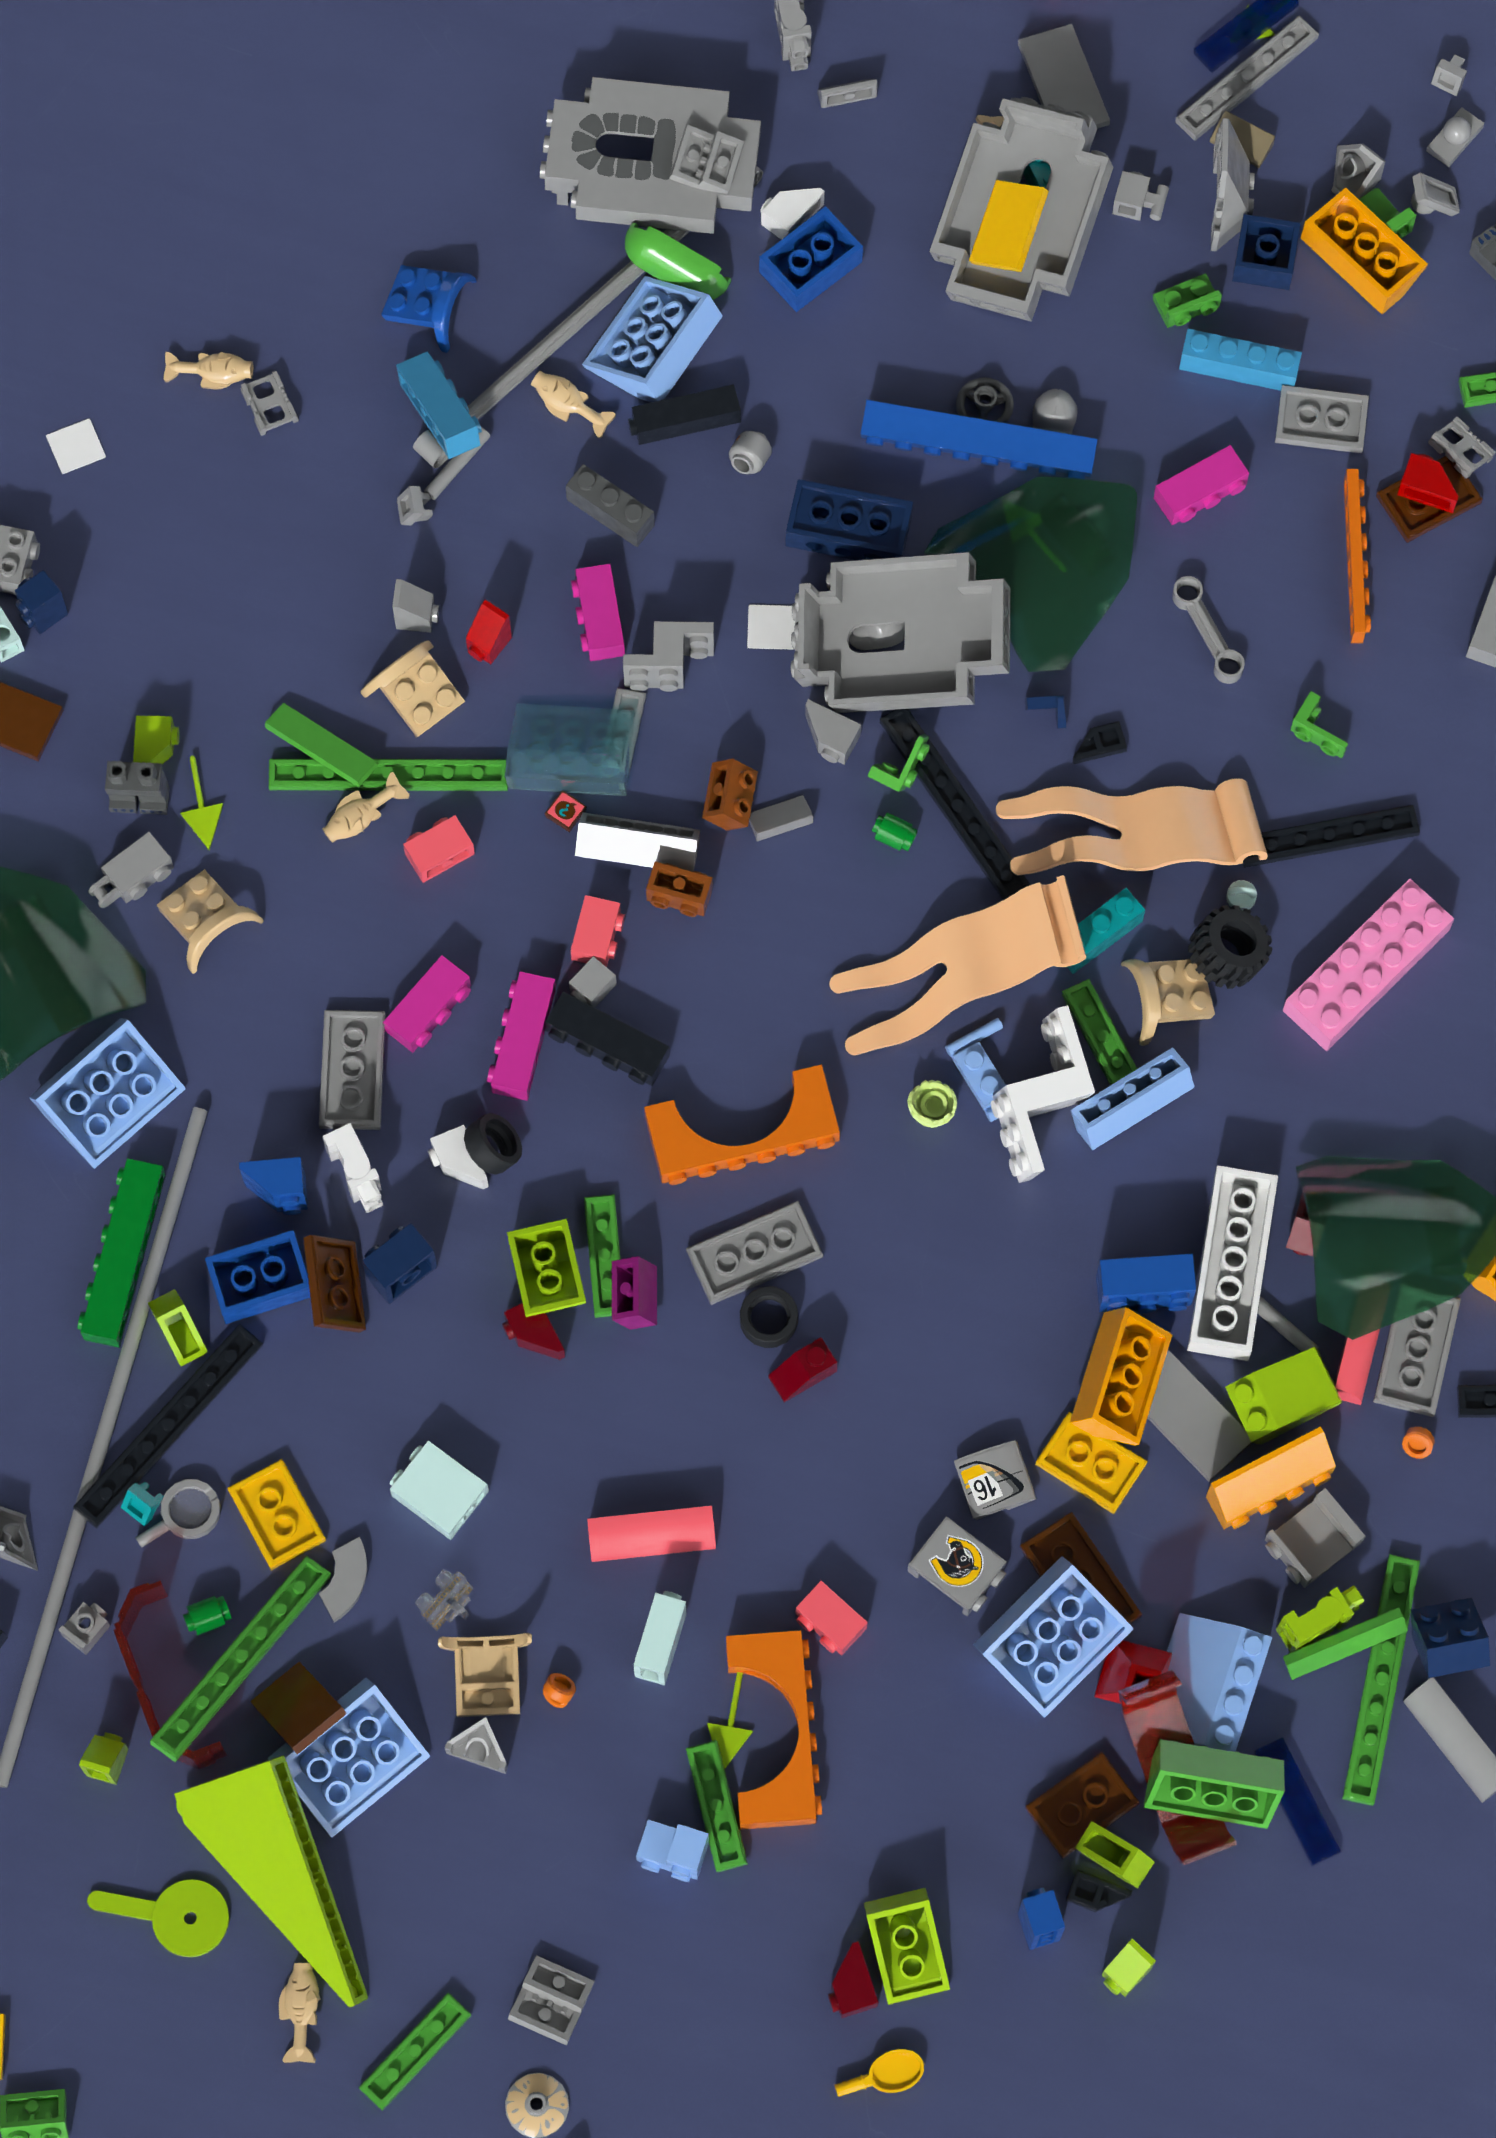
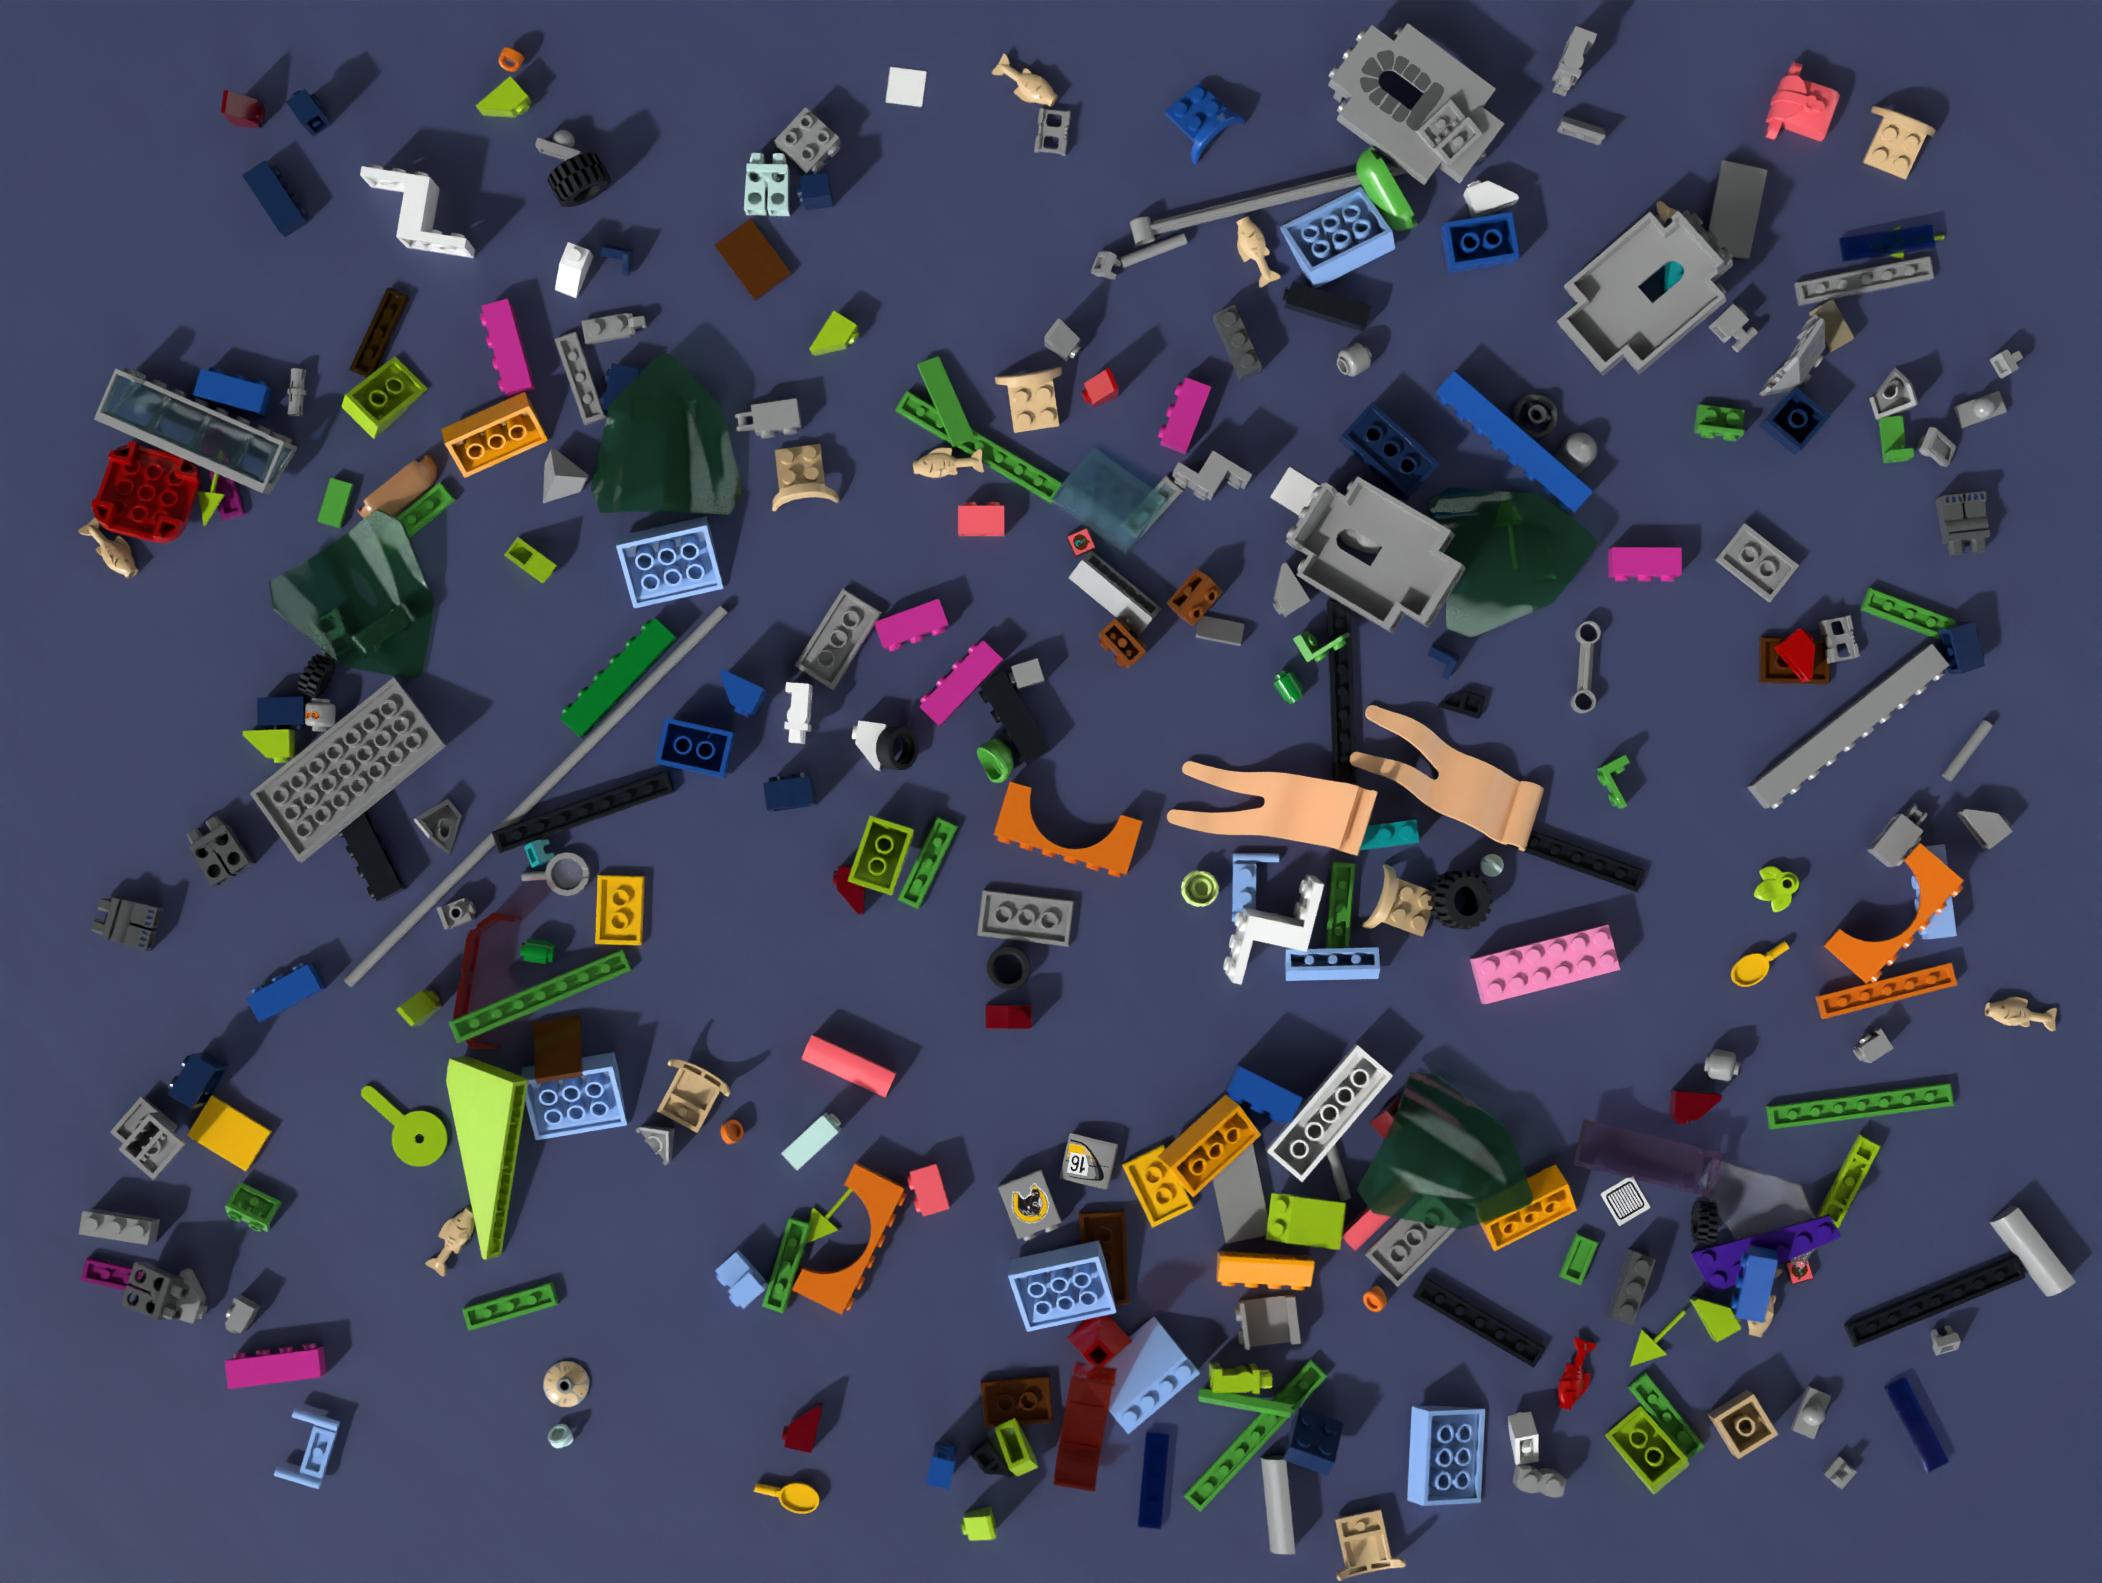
camera: 30 degrees right, 15 degrees up
(137, 780) = (801, 358): dark grey hips -> none
(177, 1327) = (625, 749): lime slope -> none
(204, 819) = (839, 406): lime piece -> none
(334, 1283) = (741, 781): reddish brown tile -> none
(348, 1579) = (640, 980): light grey tile -> none
(438, 1489) = (730, 956): light aqua brick -> none
(439, 404) = (1162, 203): dark azure brick -> none
(448, 1601) = (693, 1035): clear hips -> none
(551, 2000) = (612, 1325): light grey slope -> none
(597, 930) = (1051, 640): coral brick -> none
(613, 1096) = (996, 759): none -> bright green hair
(634, 1293) = (930, 902): magenta brick -> none
(906, 1946) = (852, 1424): lime slope -> none
(1008, 226) = (1628, 300): yellow tile -> none
(1214, 1784) = (1105, 1444): bright green slope -> none
(1239, 360) = (1727, 488): dark azure brick -> none
(1356, 566) = (1722, 666): orange plate -> none
(1363, 250) = (1862, 458): light orange slope -> none

